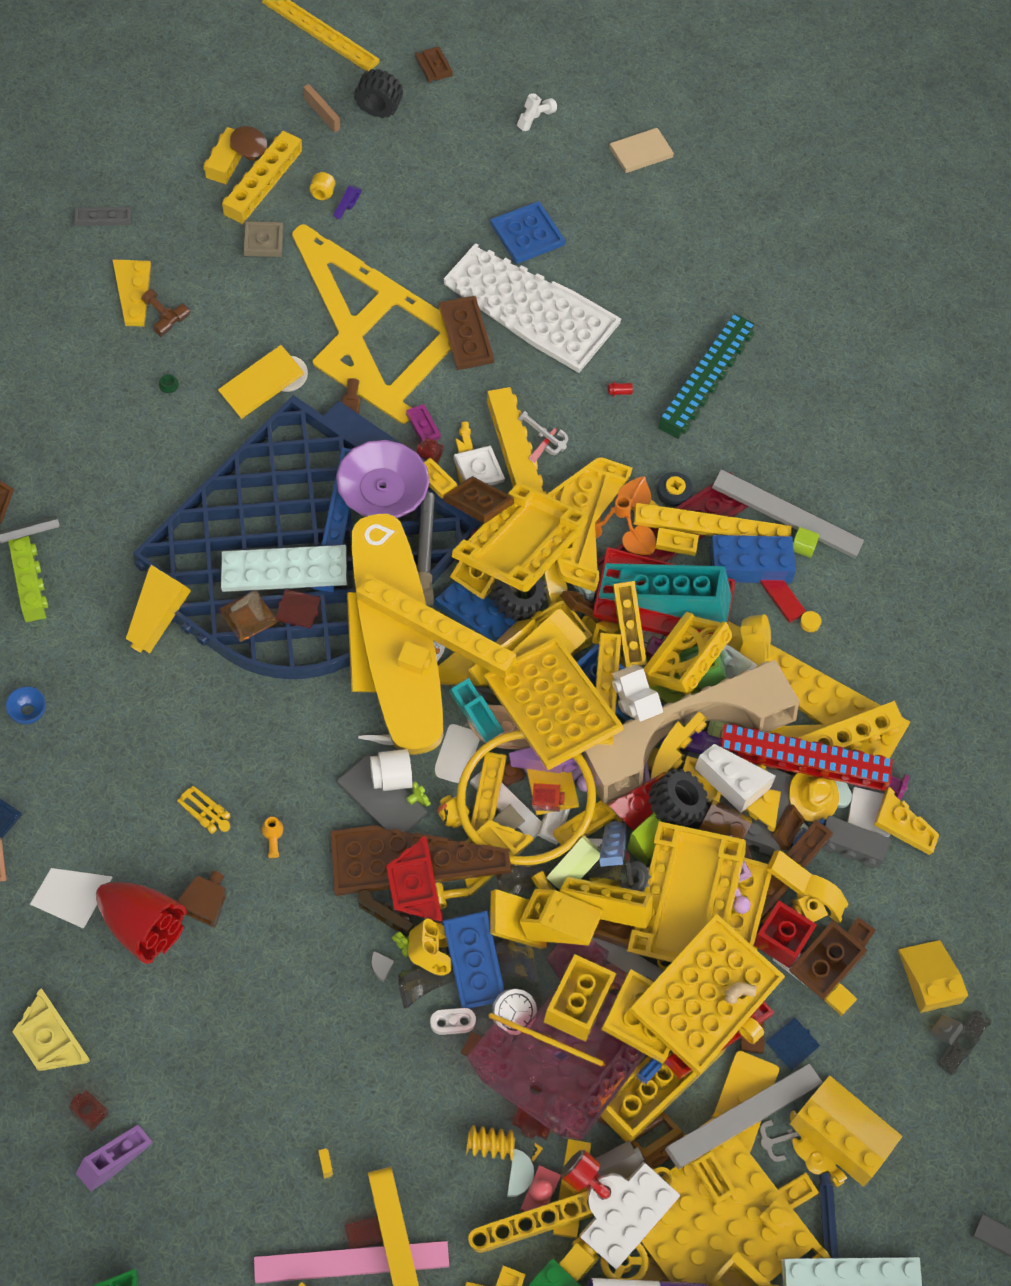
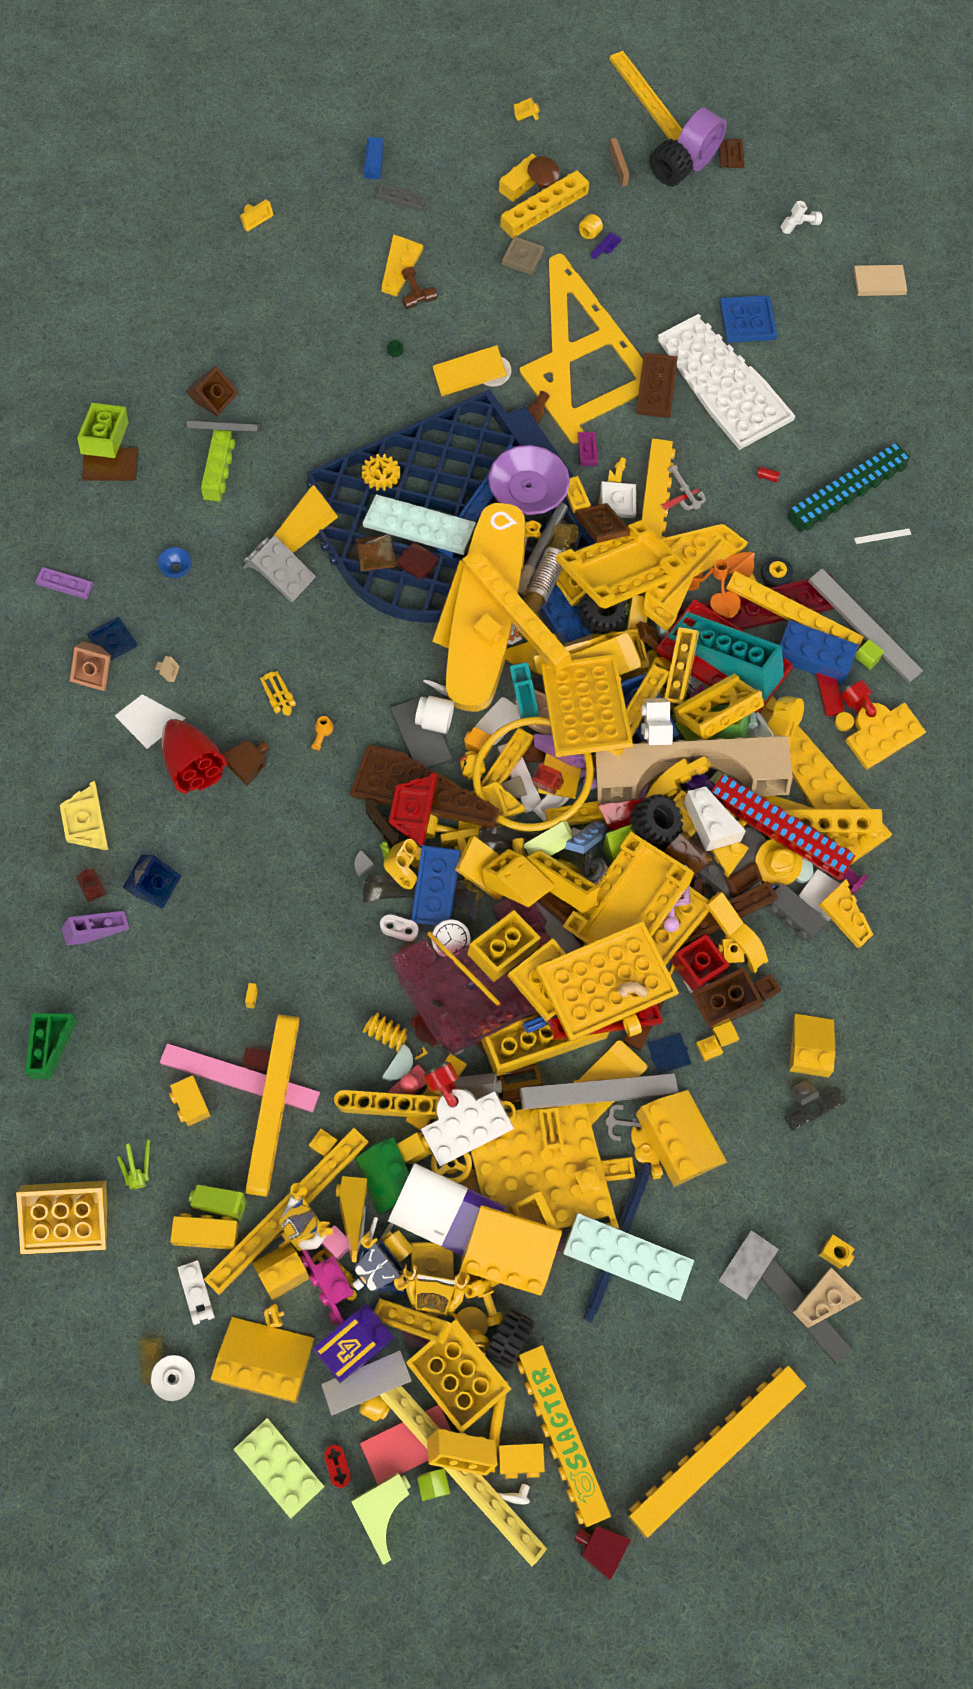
camera: 25 degrees right, 5 degrees up
(54, 183) = (373, 158): none -> blue window
(70, 828) = (168, 668): none -> tan tile
(147, 668) = (280, 567): none -> light grey bracket
(156, 1077) = (152, 881): none -> clear blue slope
(197, 81) = (525, 109): none -> yellow bracket
(216, 527) = (373, 476): none -> yellow gear
(401, 55) = (702, 137): none -> medium lavender piece
(410, 527) = (535, 526): none -> yellow plate
(418, 795) = (449, 742): lime plant -> none
(430, 449) = (583, 471): clear red brick -> none
(444, 569) = (550, 569): none -> clear yellow piece
(446, 782) = (475, 739): none -> light orange brick
(476, 898) = (458, 839): none -> yellow bracket
(677, 541) = (756, 615): yellow plate -> none
(761, 414) = (882, 536): none -> white sticker
(831, 1021) = (709, 1048): none -> yellow tile
(851, 617) = (880, 730): none -> yellow plate
(974, 1238) = (748, 1265): none -> flat silver sticker

